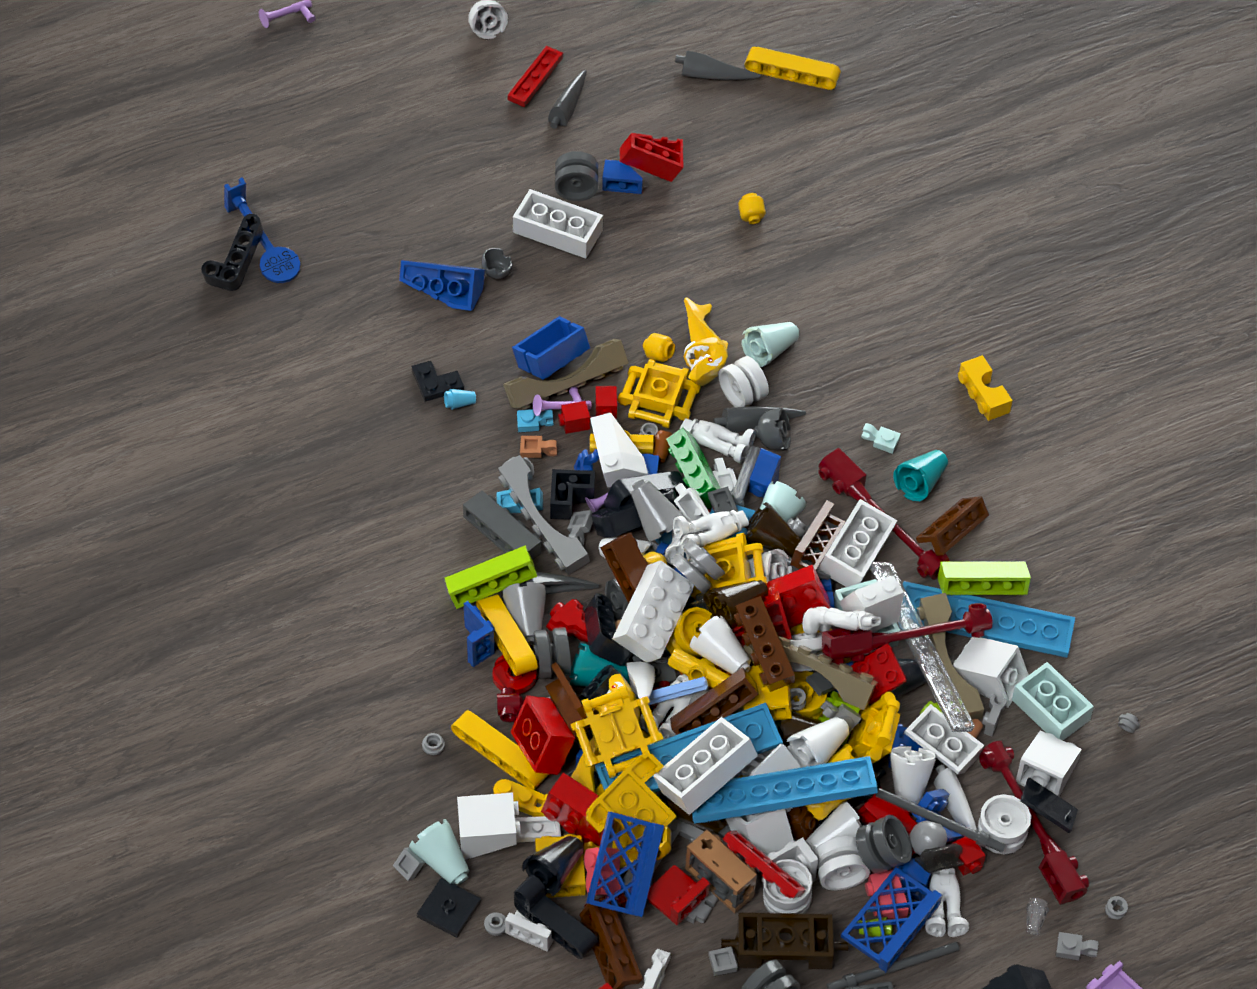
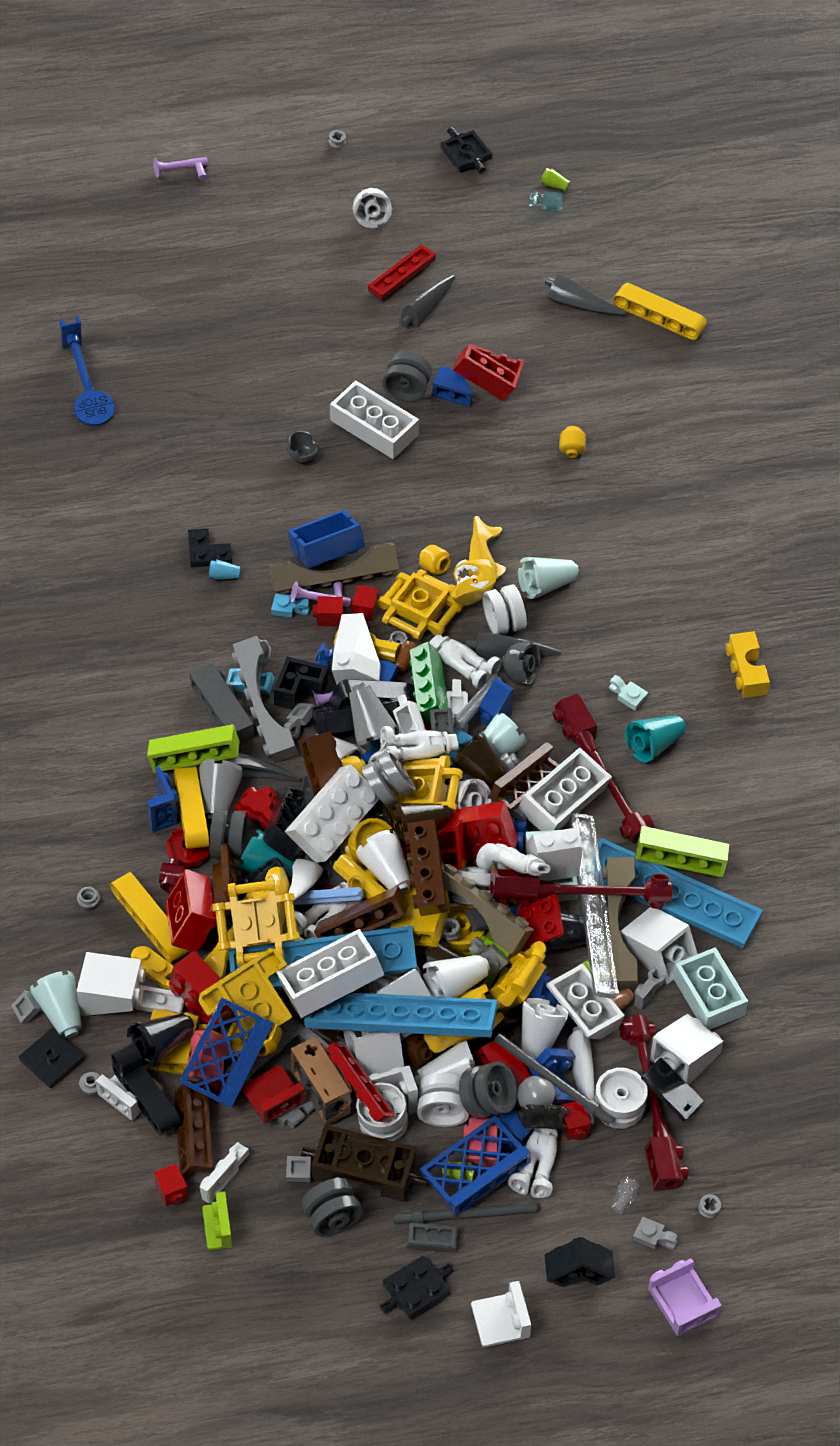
camera: 15 degrees right, 0 degrees up
(249, 231) = (72, 370): black beam -> none
(451, 284) = (251, 458): blue wedge -> none
(534, 447) = (280, 631): nougat plate -> none
(954, 524) = (670, 793): reddish brown fence -> none
(1128, 722) = (783, 1026): light grey plate -> none

